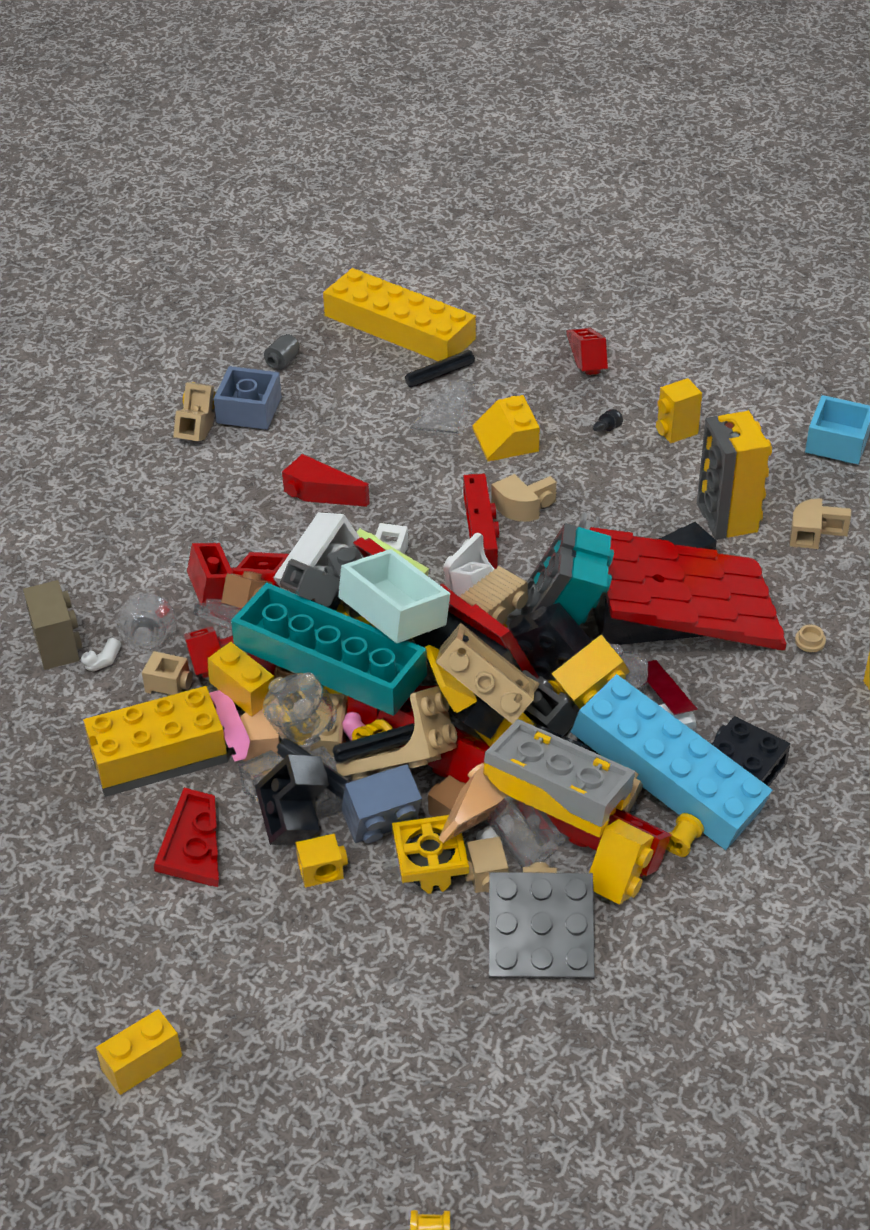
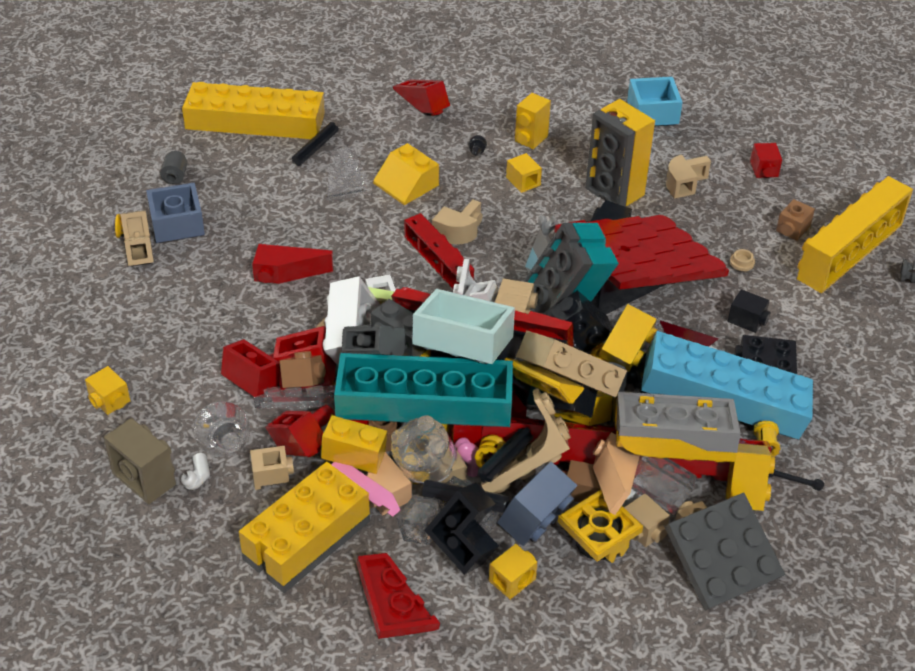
camera: 30 degrees left, 0 degrees up
(73, 550) = (107, 390): none -> yellow brick
(633, 465) = (523, 172): none -> yellow brick
(707, 903) = (817, 484): none -> black hinge
(770, 694) = (749, 311): none -> black brick

